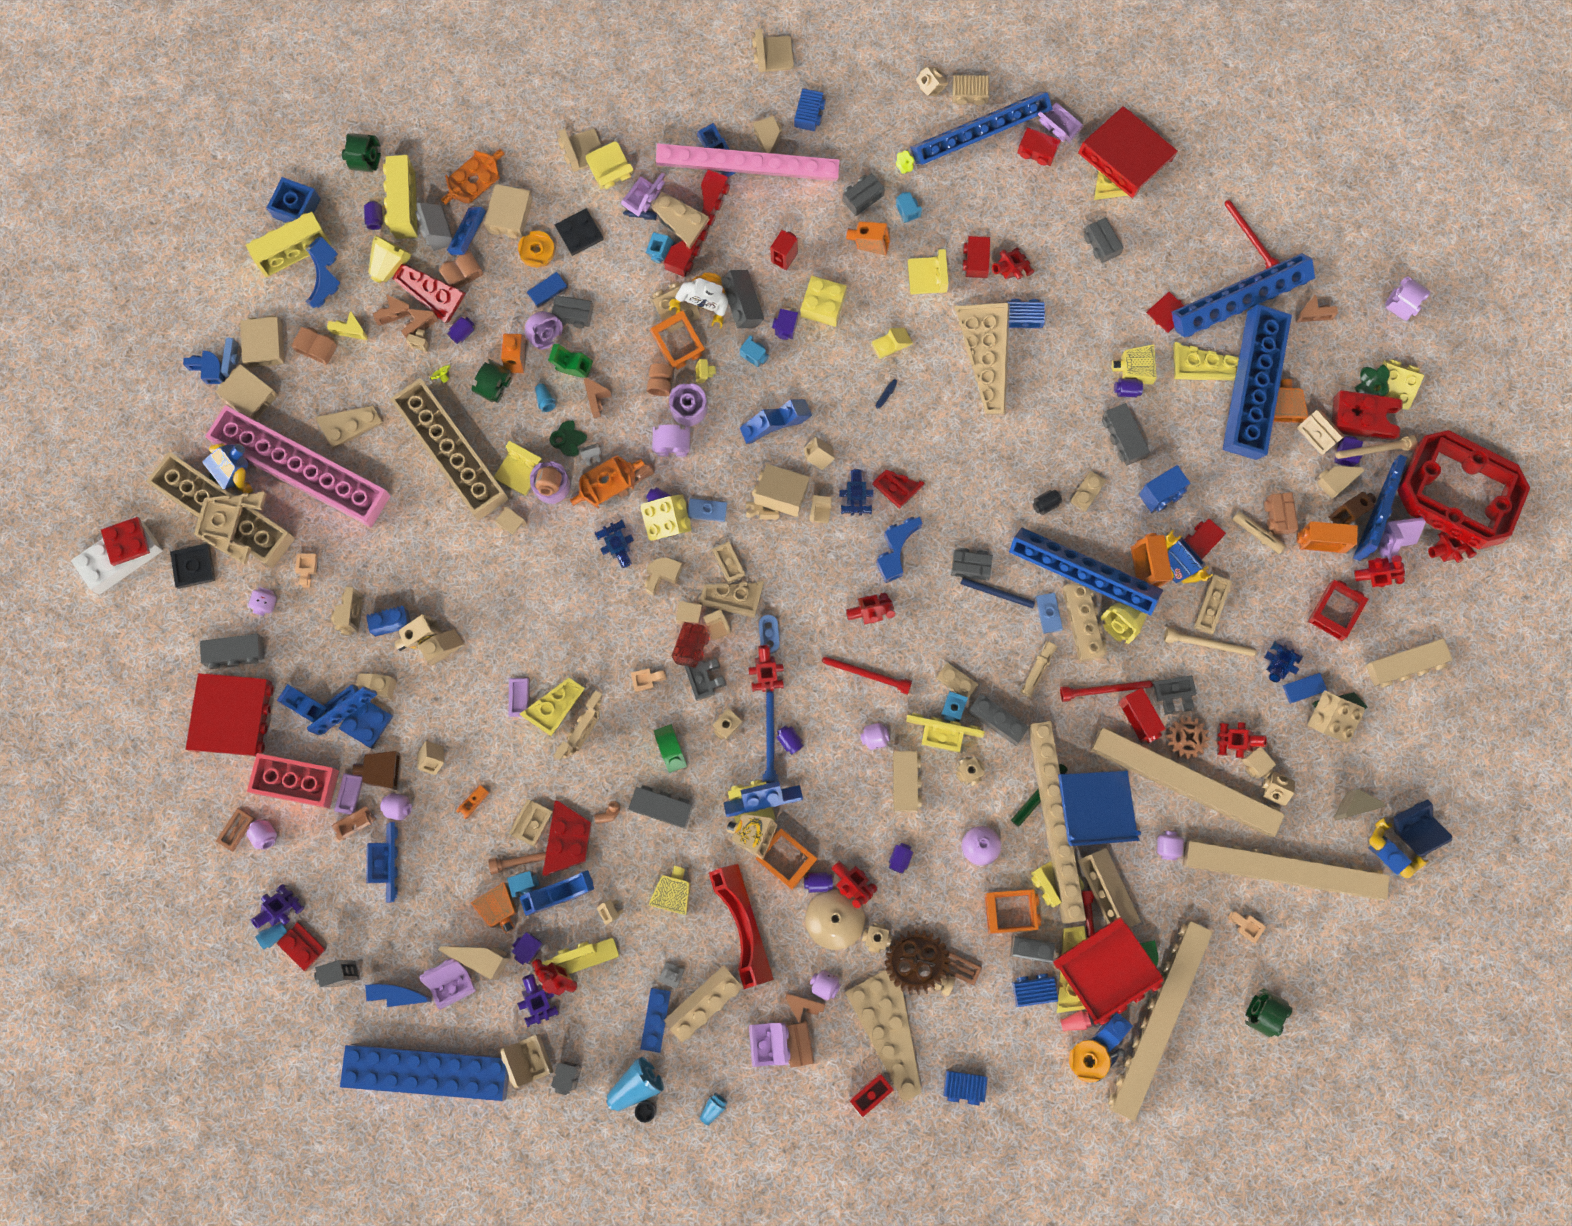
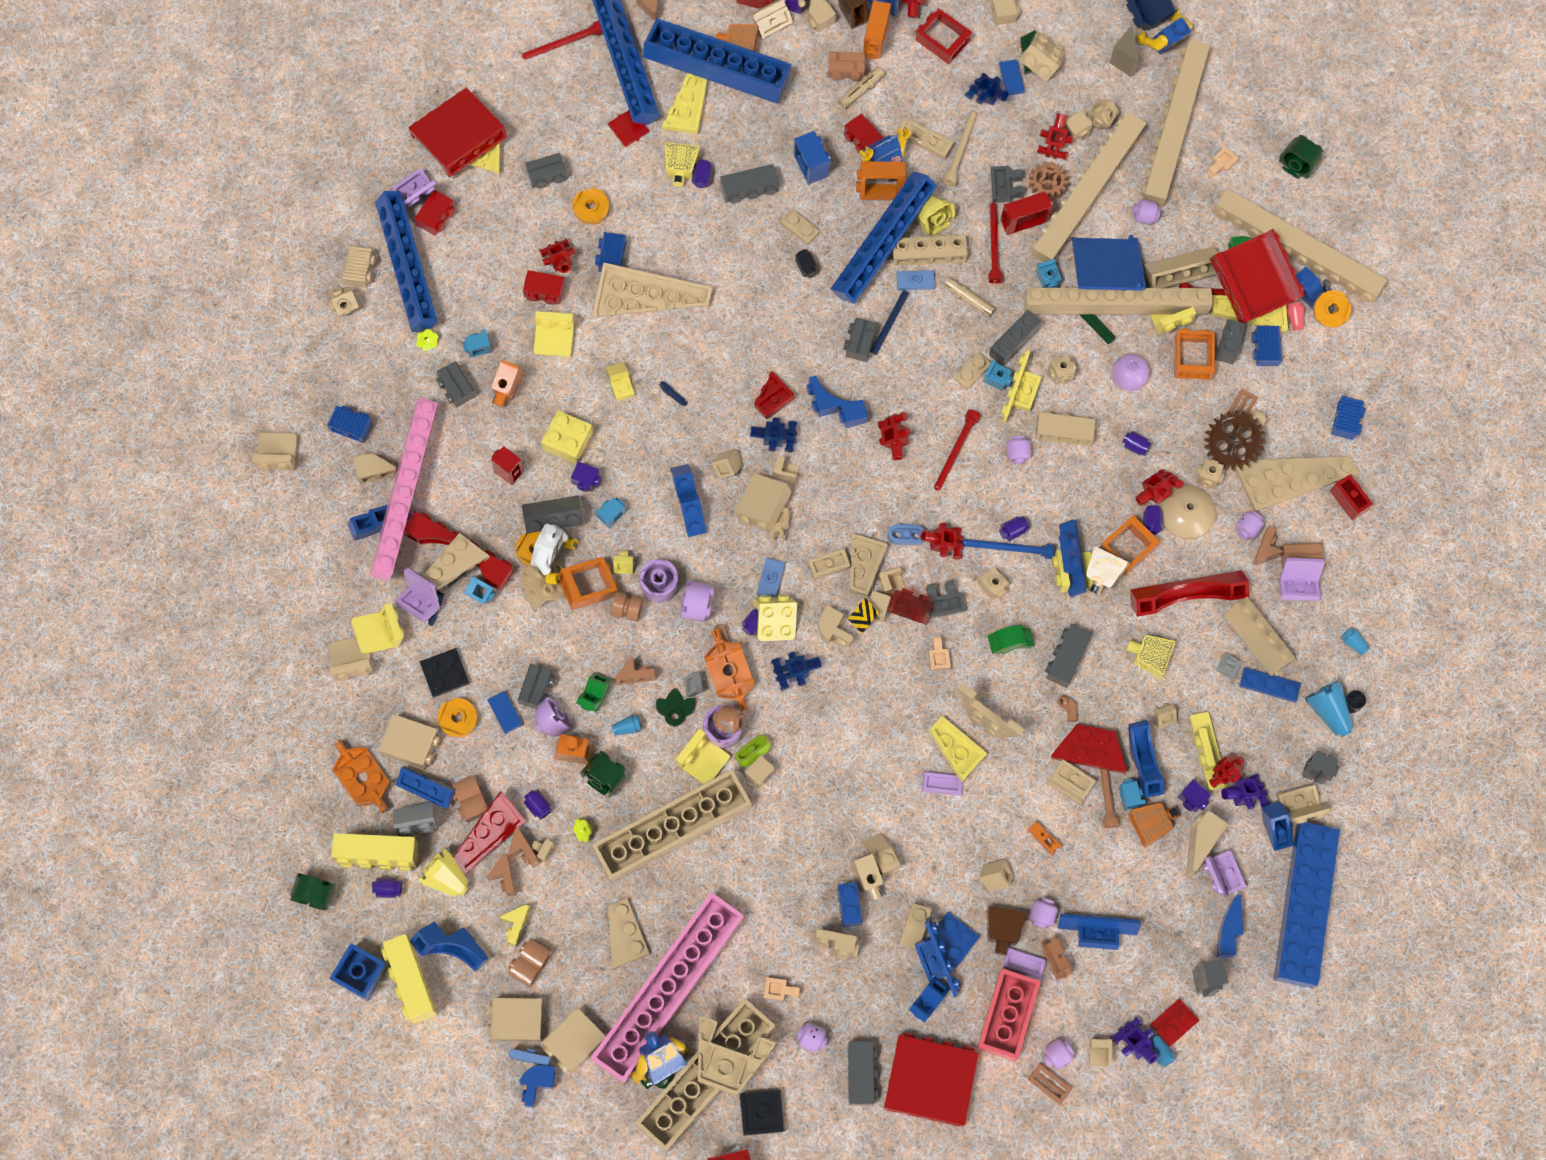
camera: 90 degrees left, 5 degrees down
(267, 875) = (1100, 1052): none -> tan panel
(505, 1036) = (1277, 824): none -> blue slope
(531, 514) = (751, 751): none -> lime plate
(676, 600) = (863, 615): none -> sticker
(1071, 298) = (589, 196): none -> light orange plate
(1085, 749) = (1043, 271): none -> dark azure brick

